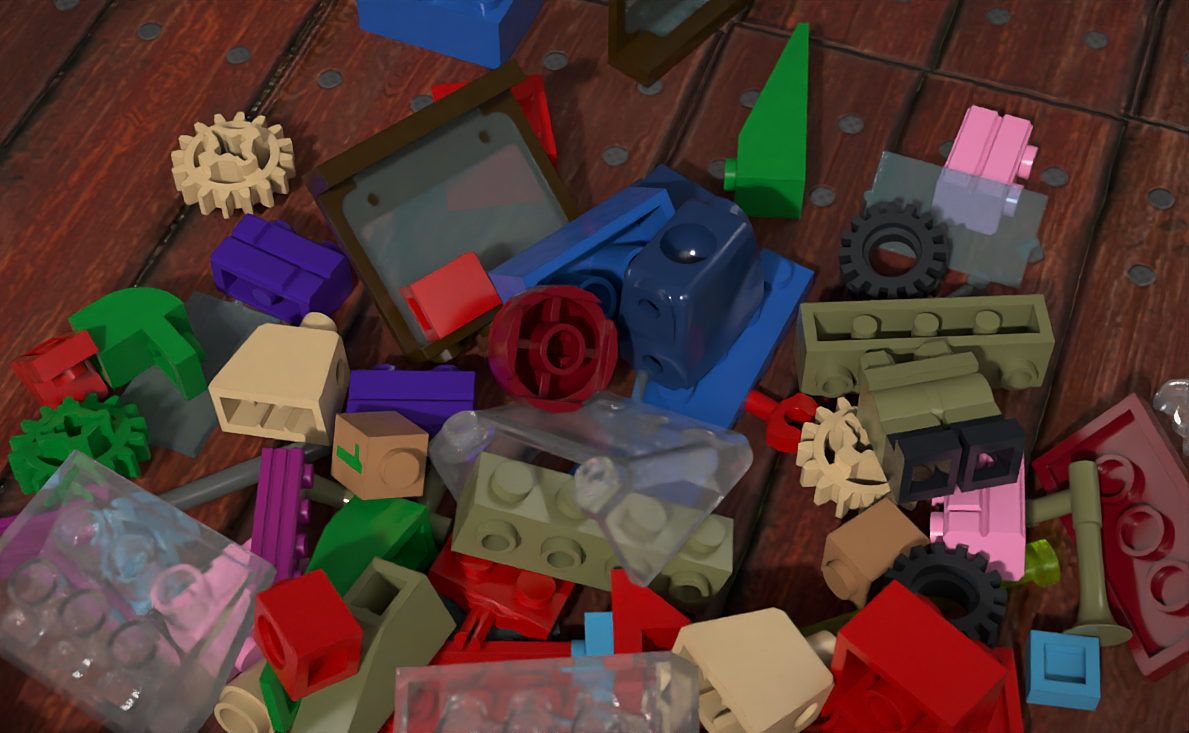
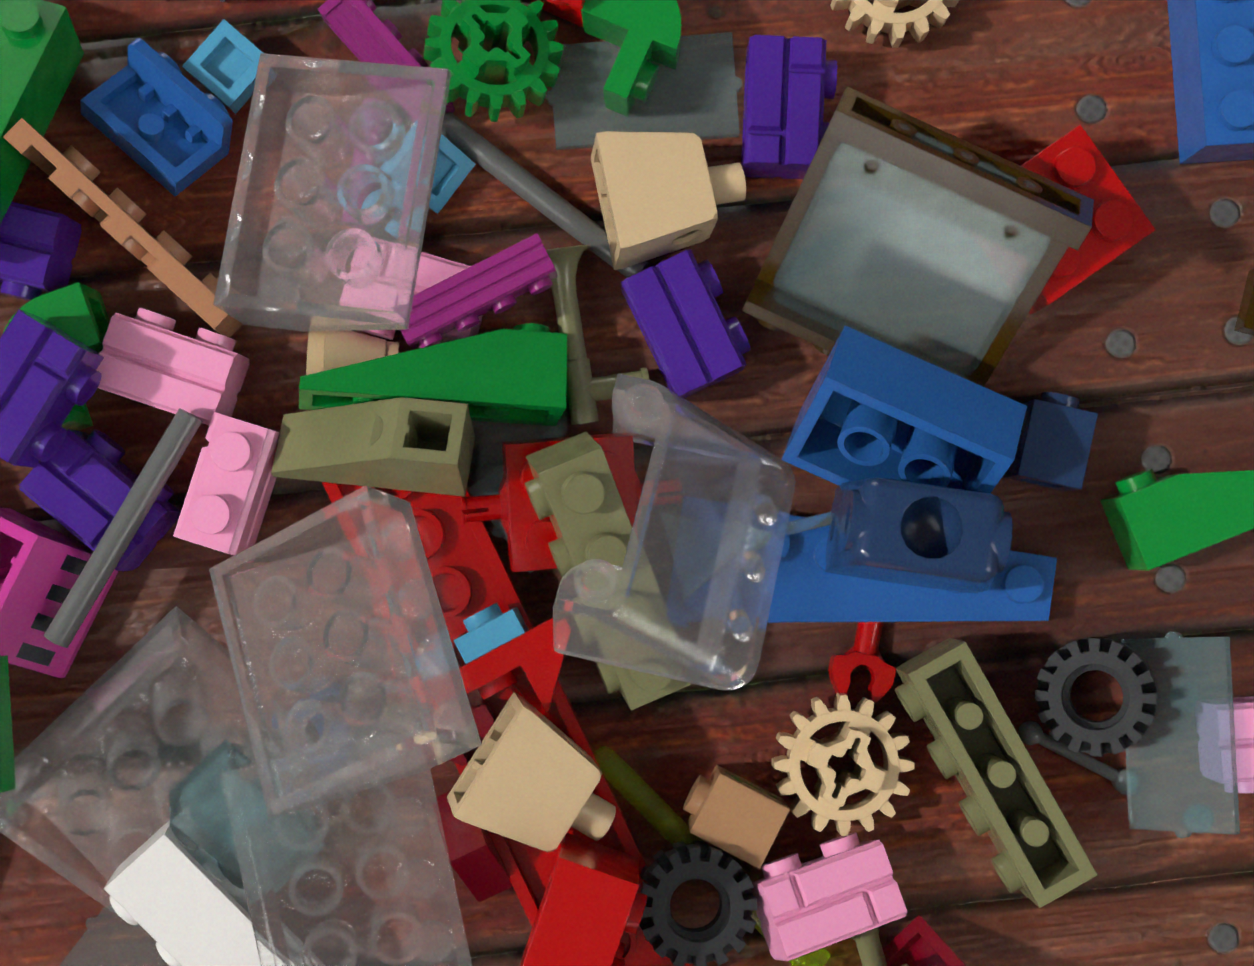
camera: 65 degrees right, 35 degrees up
(307, 633) = (347, 396): red brick -> none
(379, 455) = (596, 335): medium nougat brick -> none
(450, 296) = (809, 299): red panel -> none
(552, 347) = (766, 441): dark red cylinder -> none
(938, 417) = (876, 831): hips -> none

